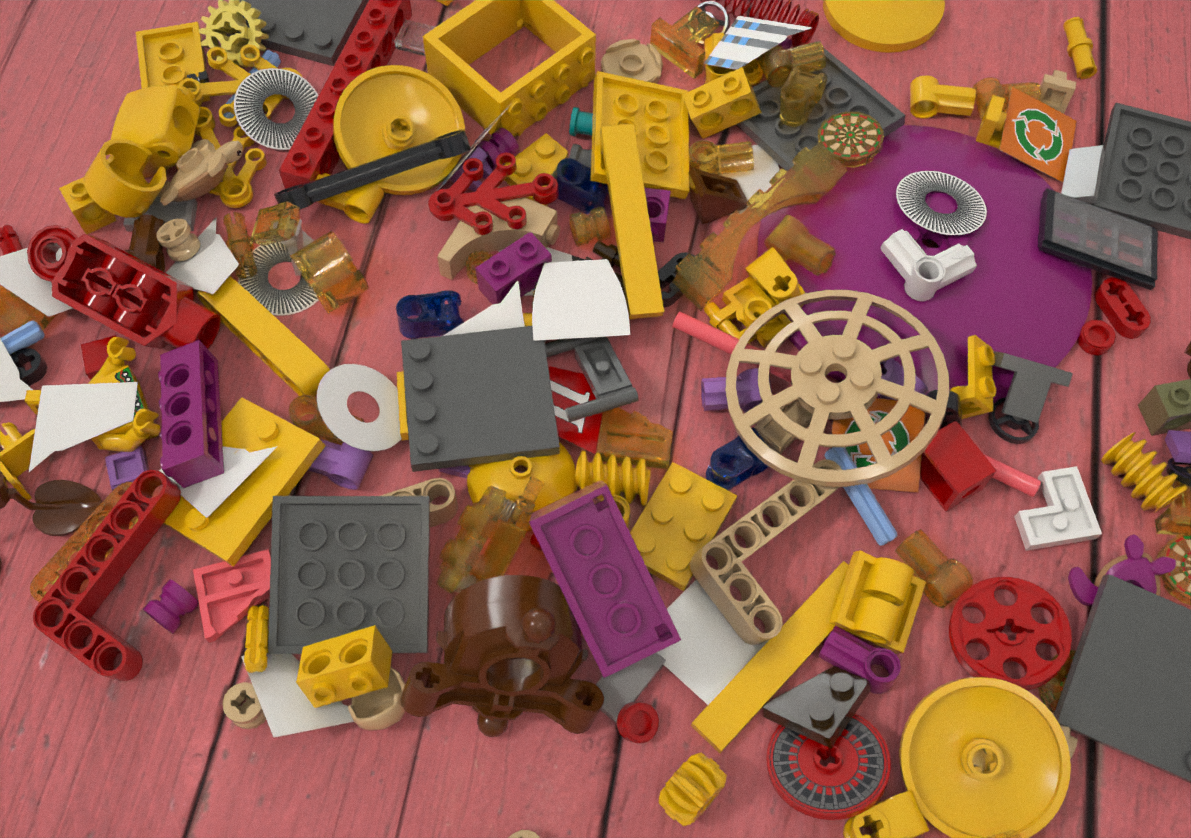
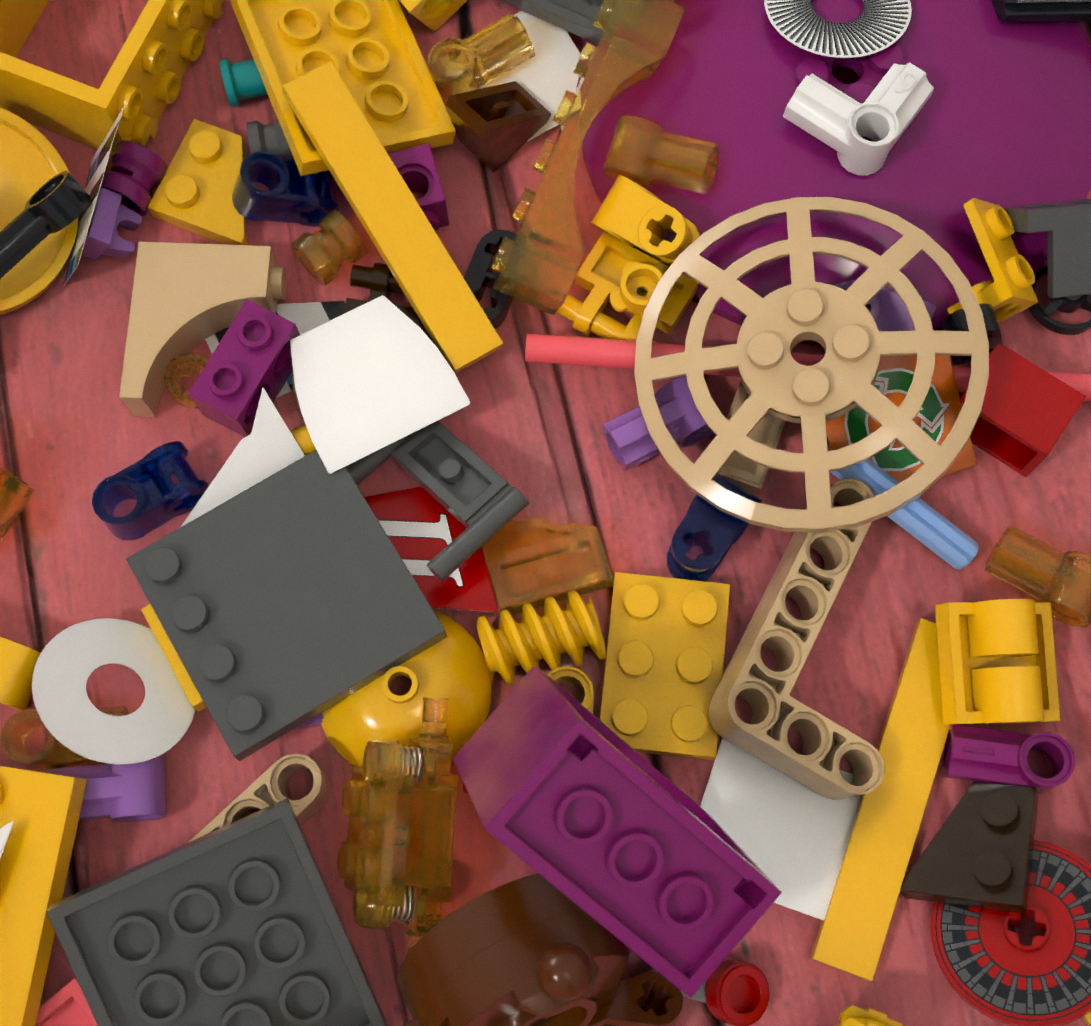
camera: 20 degrees left, 10 degrees up
(489, 196) = (155, 265): red plant -> none

